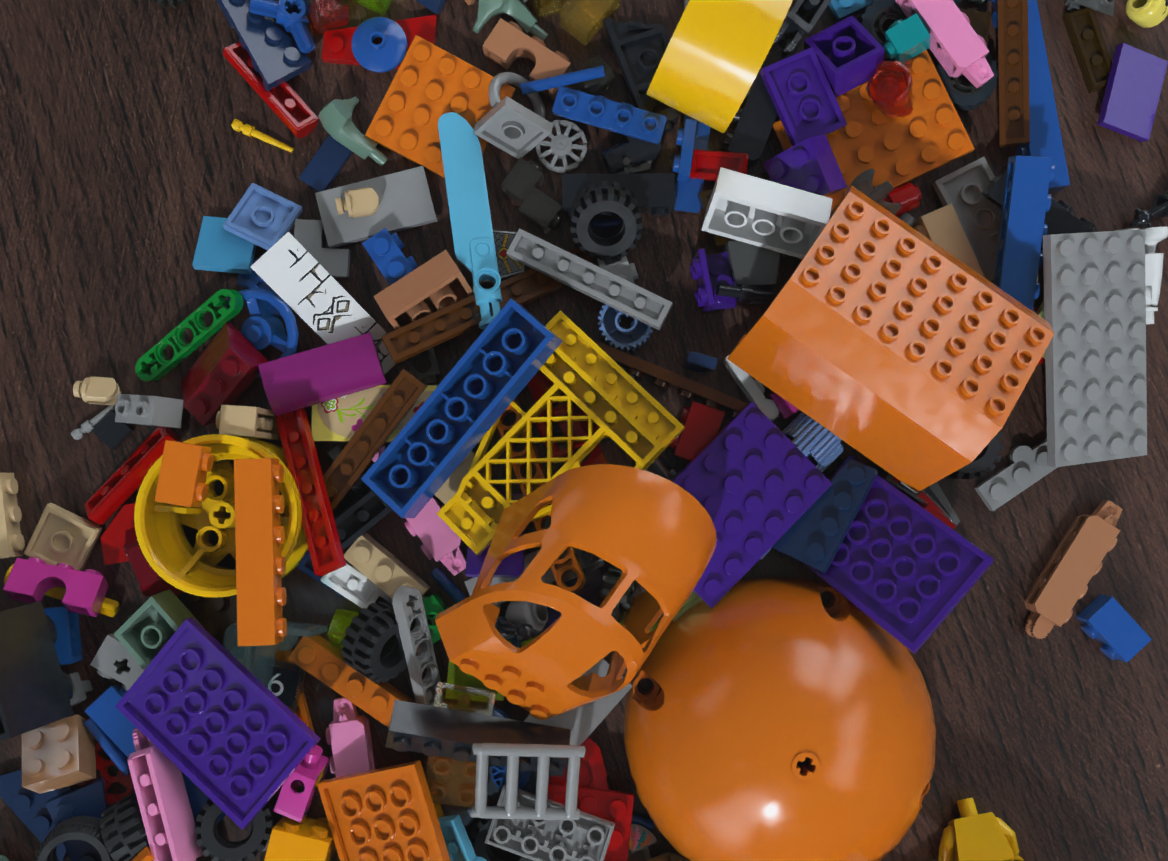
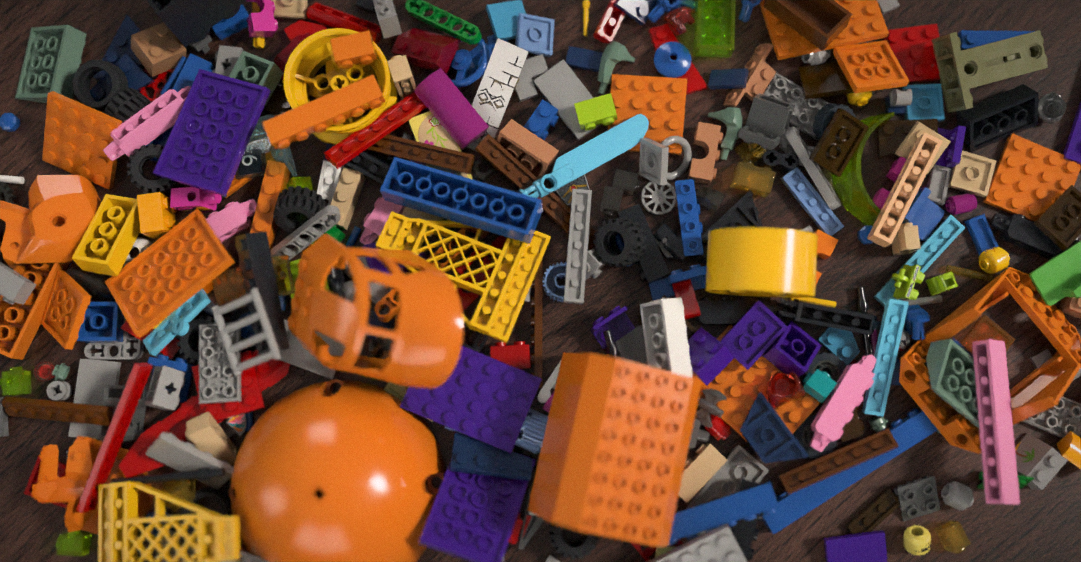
camera: 70 degrees right, 5 degrees down
(358, 202) = (567, 87): tan arm -> none
(410, 177) = (596, 112): none -> lime brick
(562, 80) = (697, 178): blue bar -> none
(699, 363) = (554, 335): dark blue tile -> none
(943, 132) = (769, 434): none -> dark blue wing

